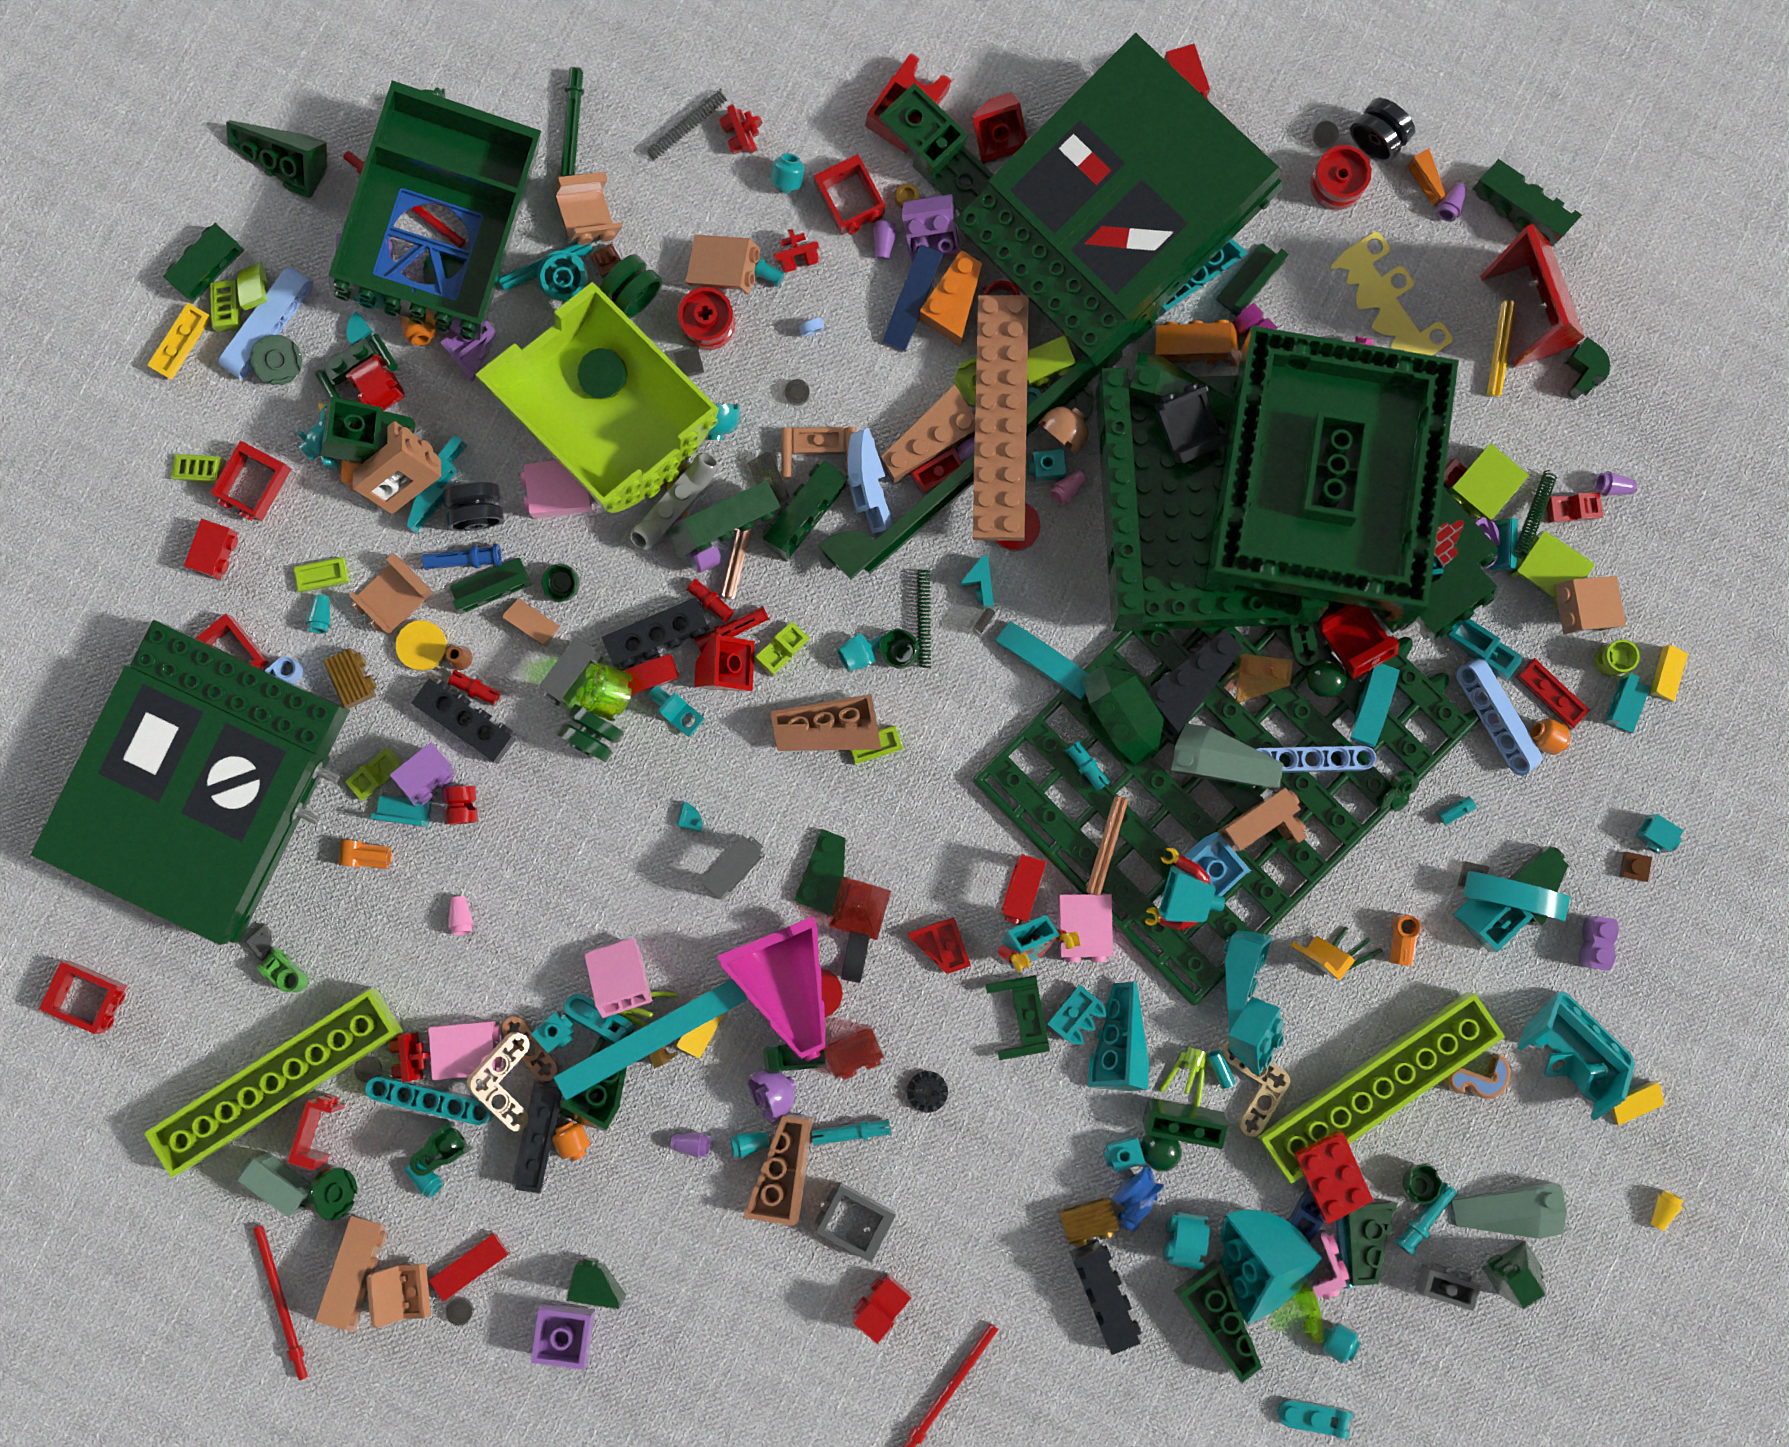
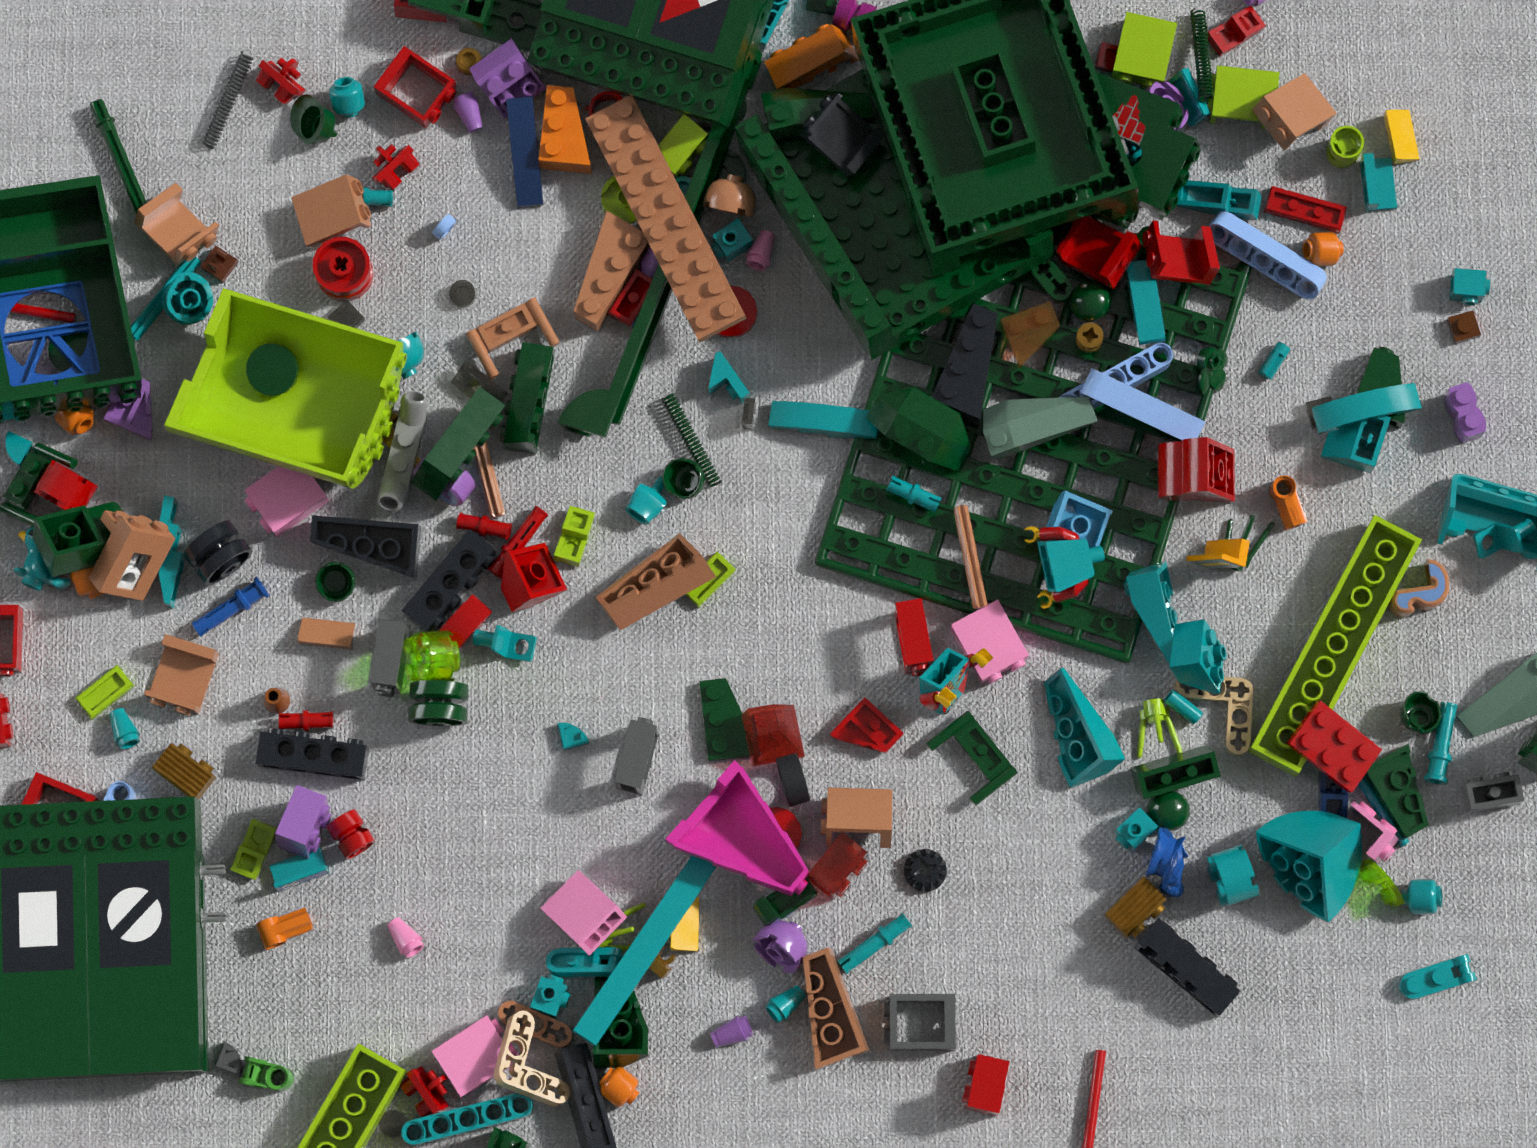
camera: 20 degrees left, 5 degrees down
(421, 645) = (234, 708): yellow tile -> none
(490, 586) = (269, 619): dark green panel -> none
(612, 568) = (376, 542): none -> black wedge
(631, 285) = (257, 273): dark green wheel -> none
(748, 179) = (312, 120): none -> dark green piece
(863, 474) = (573, 347): light blue slope -> none
(895, 1016) = (858, 812): none -> nougat panel
(1075, 1014) = (1023, 726): teal plate -> none
(1215, 1312) = (1297, 930): dark green wedge -> none
(1269, 813) = (1102, 447): nougat brick -> none
(1305, 713) = (1088, 343): none -> pearl gold wheel
(1324, 795) = (1141, 406): none -> light blue beam
(1339, 873) = (1196, 471): none -> red brick
(1426, 682) = (1180, 257): none -> red panel

